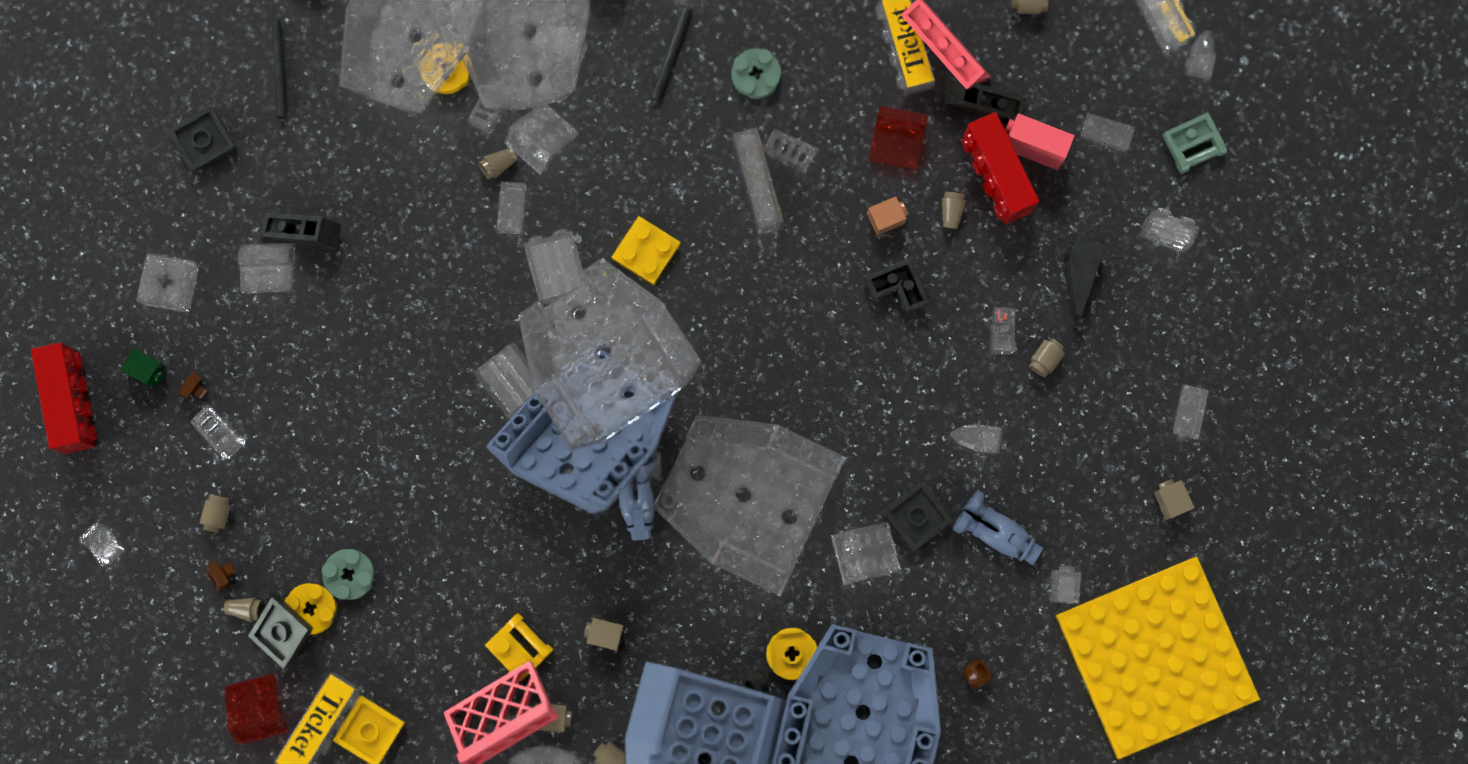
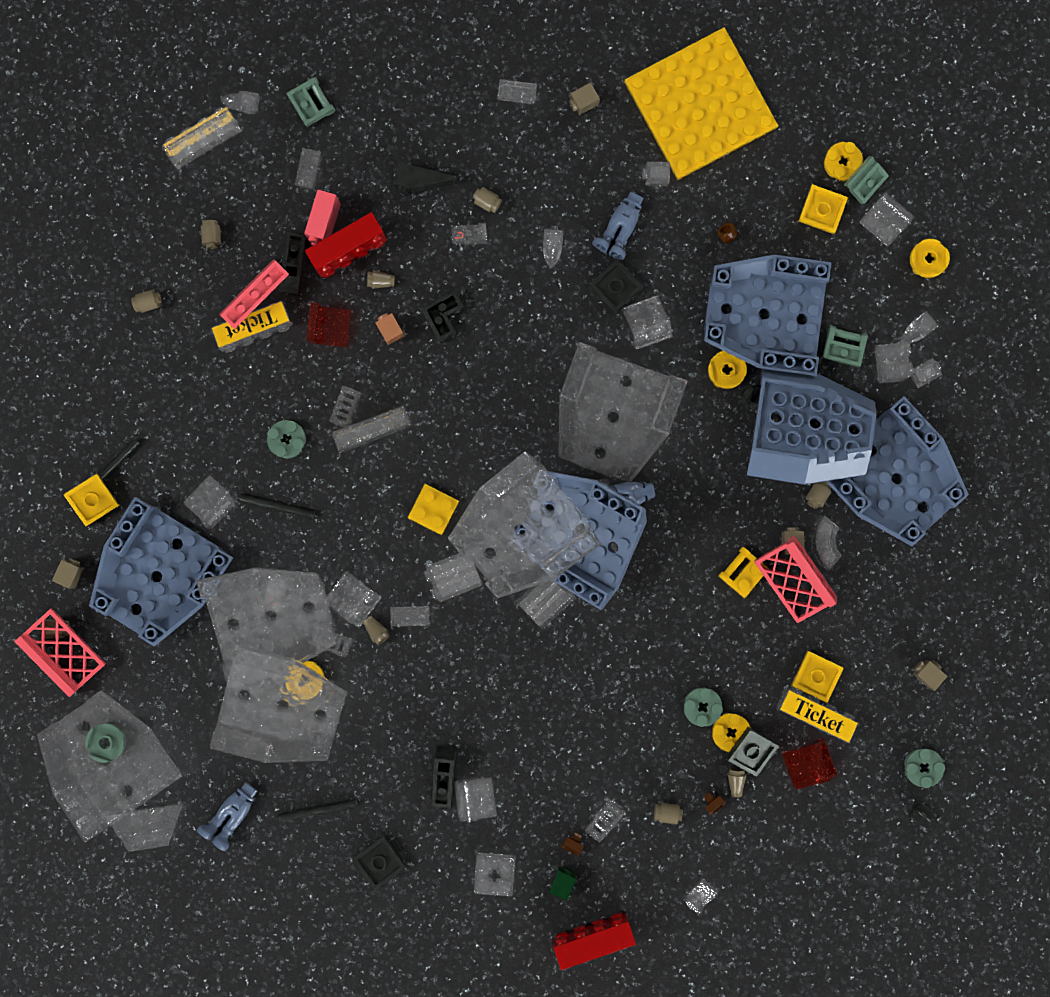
camera: 90 degrees left, 5 degrees up
(604, 634) = (727, 509): dark tan brick -> none
(1169, 231) = (383, 114): clear brick -> none

